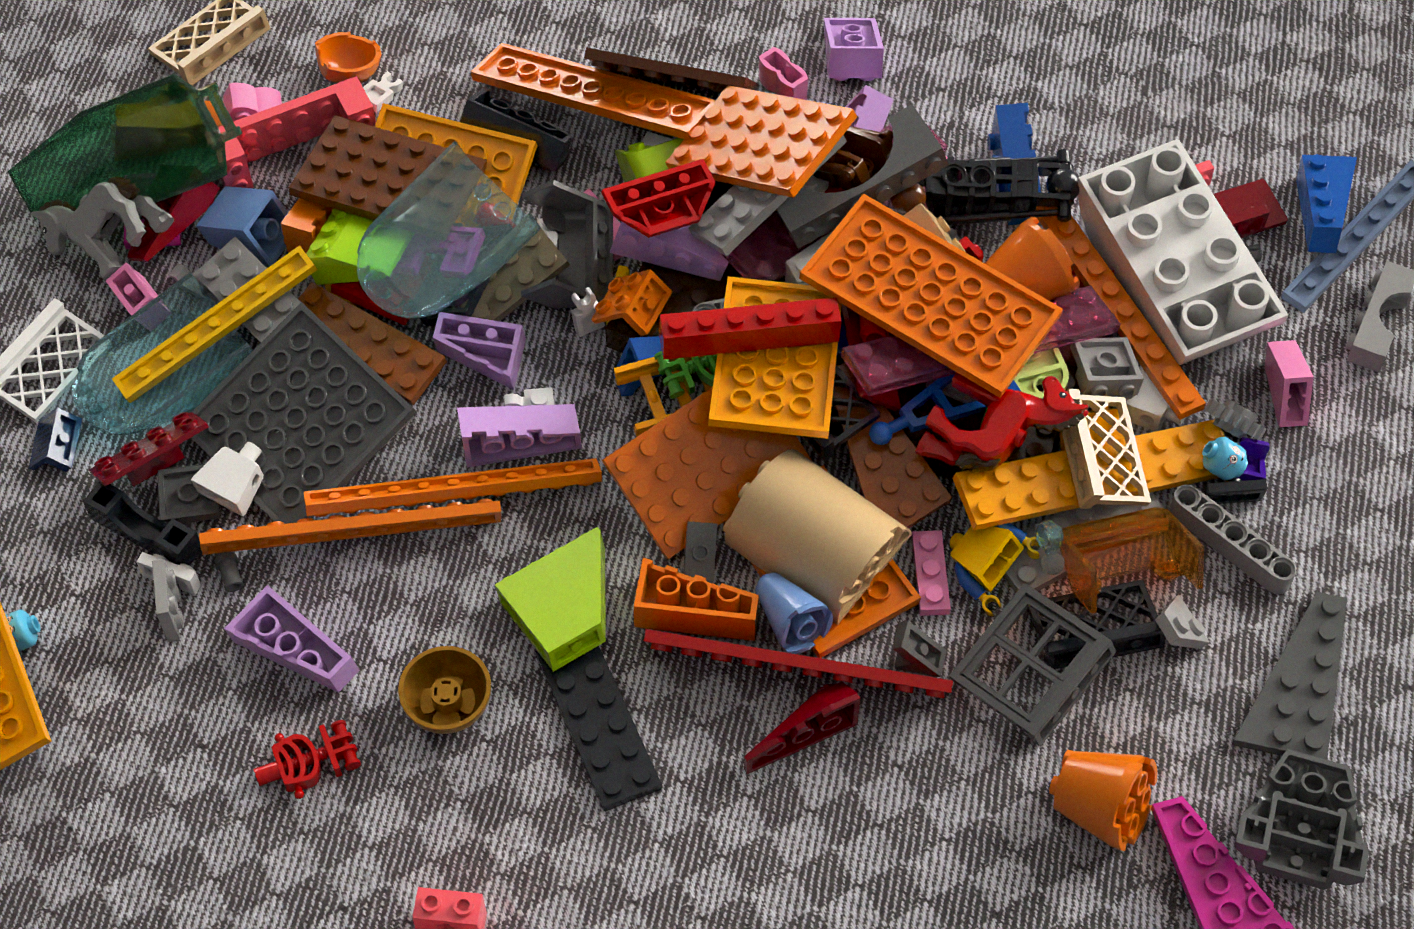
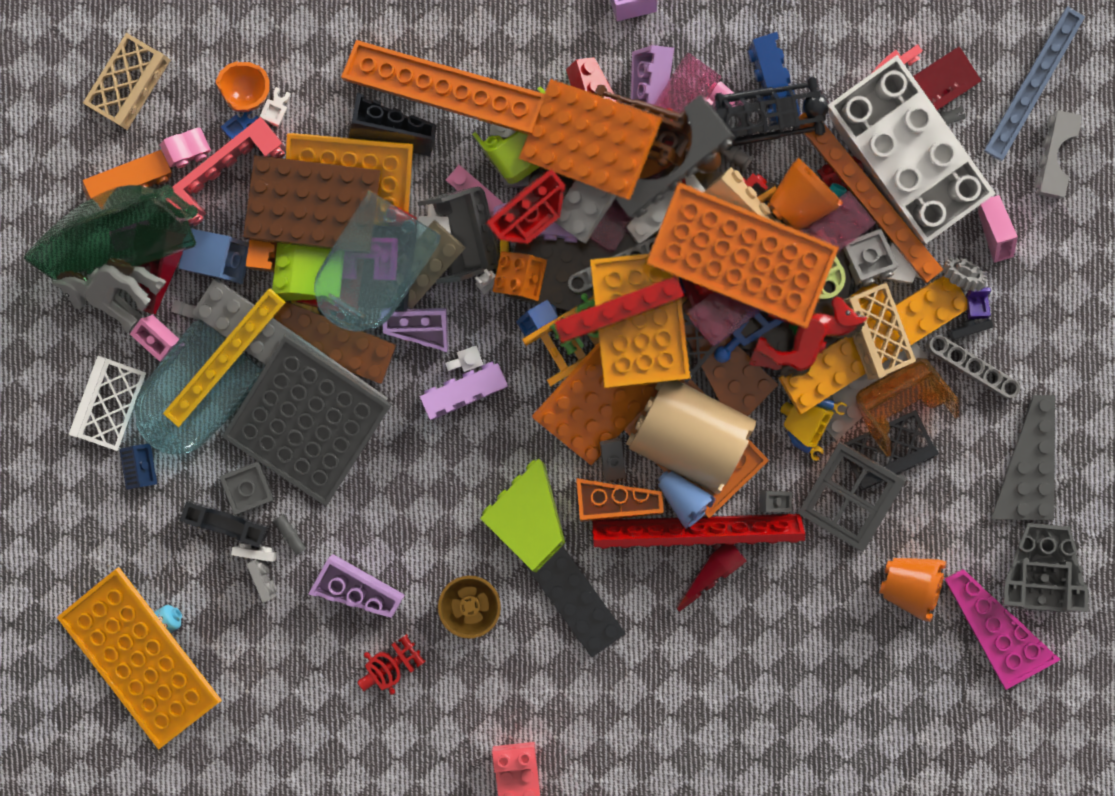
camera: 15 degrees left, 30 degrees up
(153, 453) = (211, 470): dark red bracket -> none
(231, 478) = (276, 478): white torso -> none
(340, 527) = (361, 497): orange plate -> none
(455, 486) = (430, 448): orange plate -> none
(666, 72) = (500, 56): reddish brown plate -> none
(781, 76) = (587, 34): bright pink brick -> none
(931, 572) = (771, 435): bright pink plate -> none
(1049, 539) = (851, 406): clear light blue plate -> none
(1180, 625) = (946, 445): light grey wing -> none
(1224, 458) = (961, 312): medium azure head -> none
(1323, 197) = (1007, 61): blue wedge -> none

